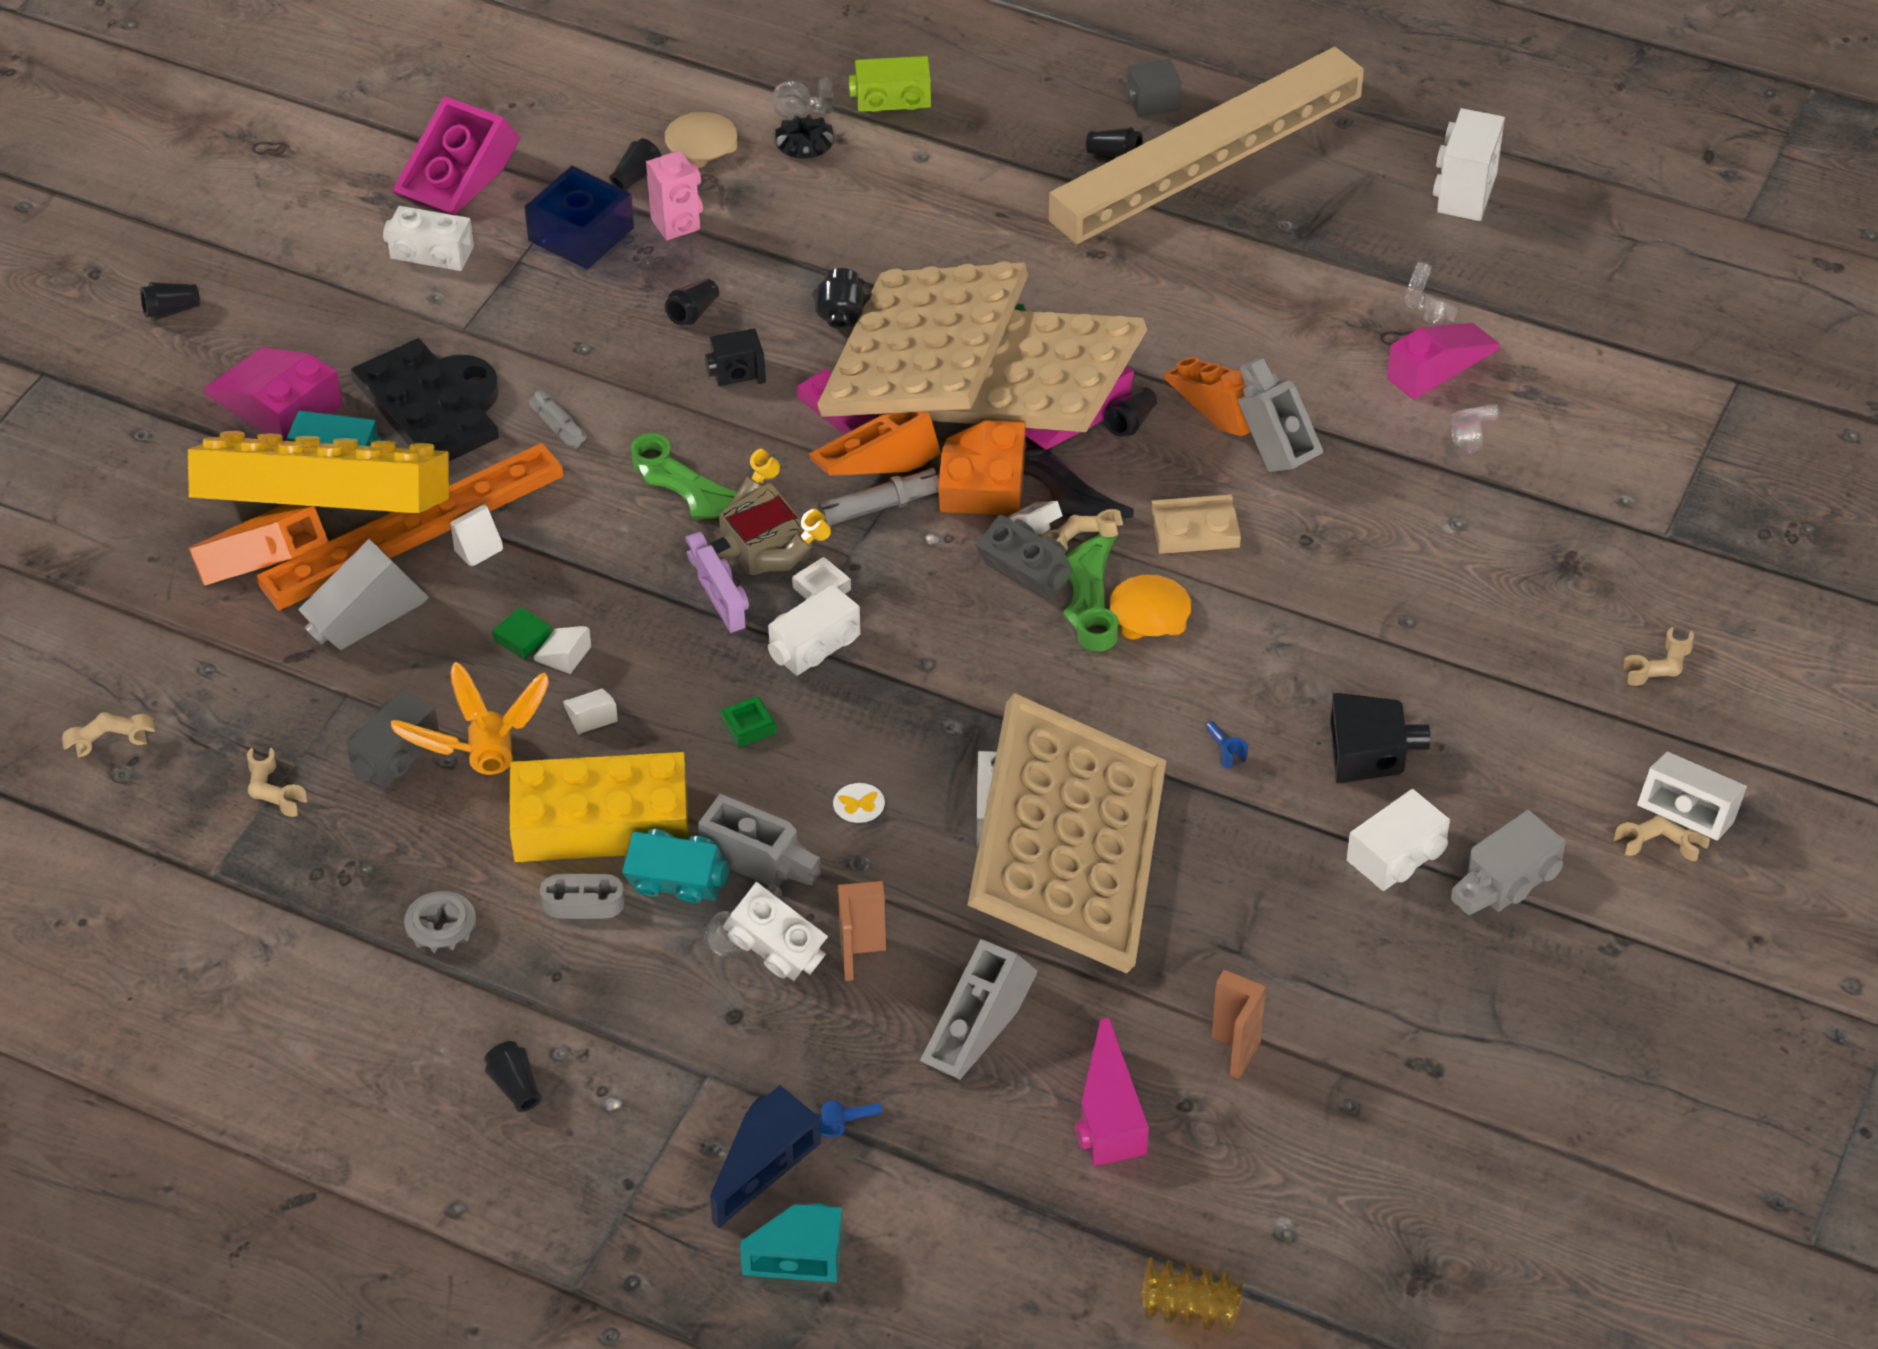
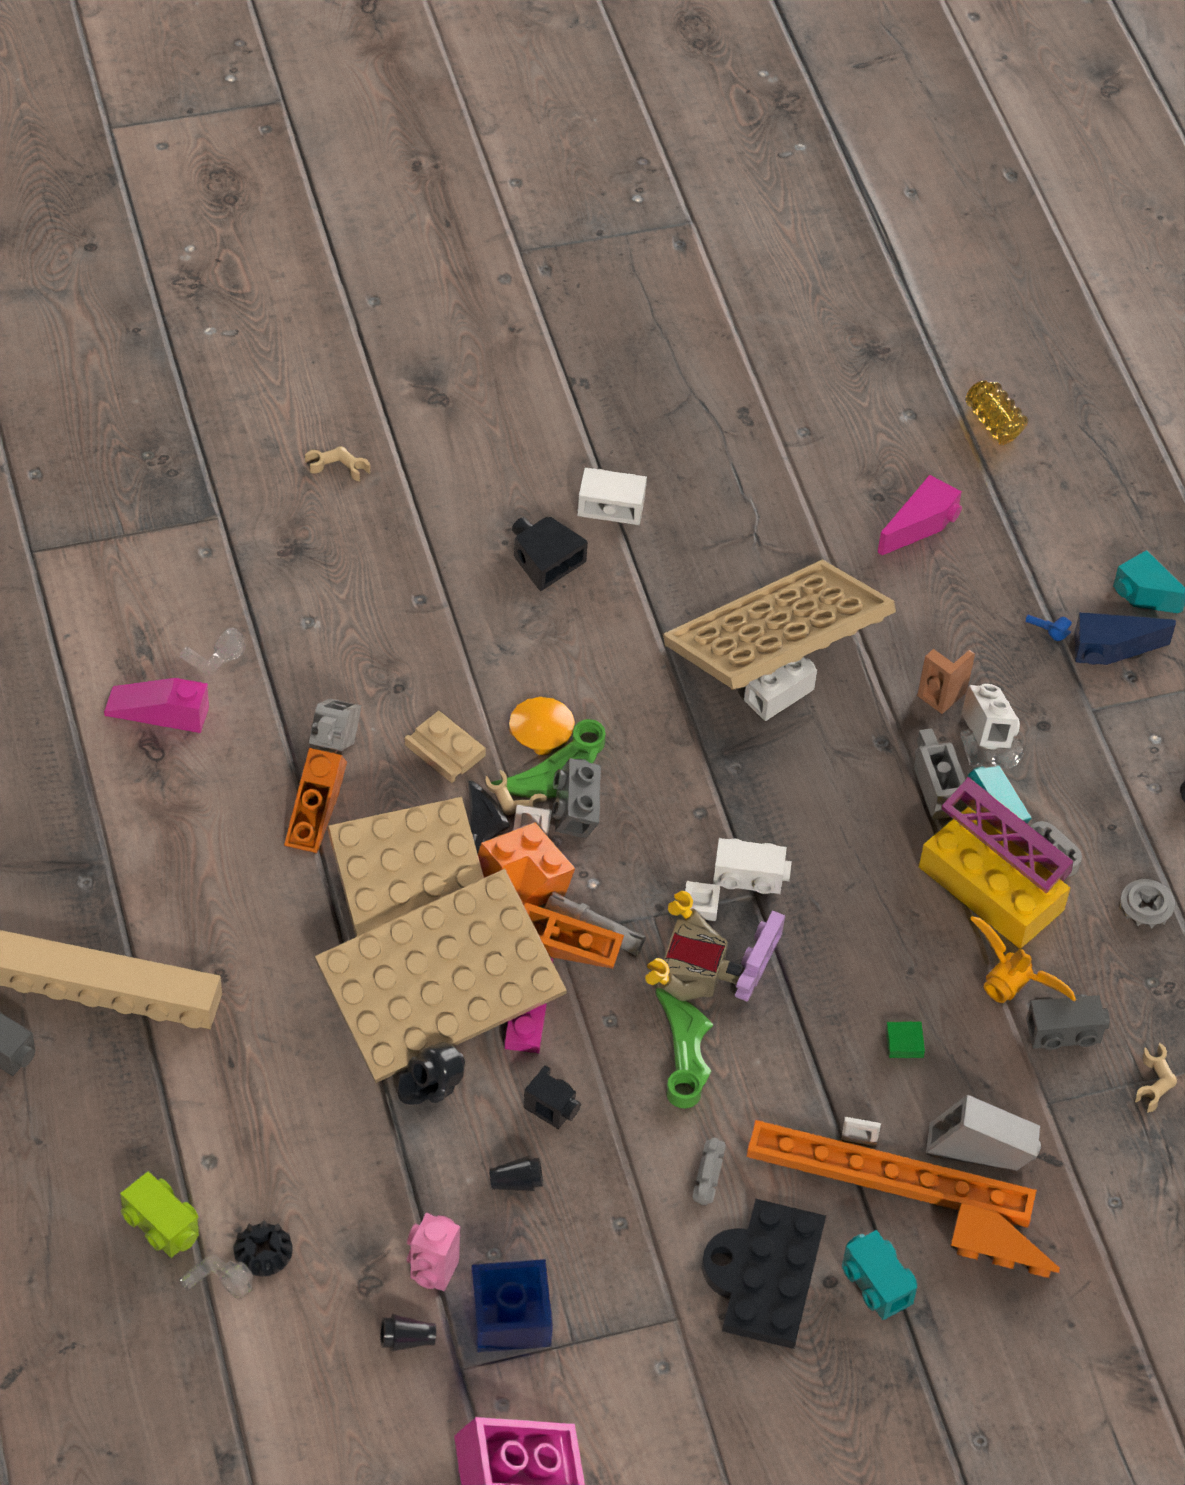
camera: 135 degrees left, 5 degrees up
(274, 386) = (864, 1374): dark pink slope -> none
(318, 472) = (932, 1228): yellow brick -> none
(429, 238) = (623, 1409): white brick -> none
(565, 648) = (893, 1002): white slope -> none
(591, 710) = (923, 950): white slope -> none
(609, 807) = (1013, 830): none -> magenta fence
(701, 136) = (327, 1320): tan dish -> none
(748, 721) = (843, 865): green tile -> none
(859, 803) = (840, 771): white sticker -> none
(979, 1008) = (930, 603): light grey slope -> none
(1113, 142) = (95, 1027): black cone -> none
(1228, 745) = (617, 618): blue hand -> none
(1238, 1017) = (824, 475): nougat panel -> none
(1434, 310) = (113, 731): clear plate -> none
(1510, 864) = (580, 440): light grey hinge -> none
(1661, 826) = (475, 400): tan arm -> none
(1691, 795) = (448, 384): white brick -> none

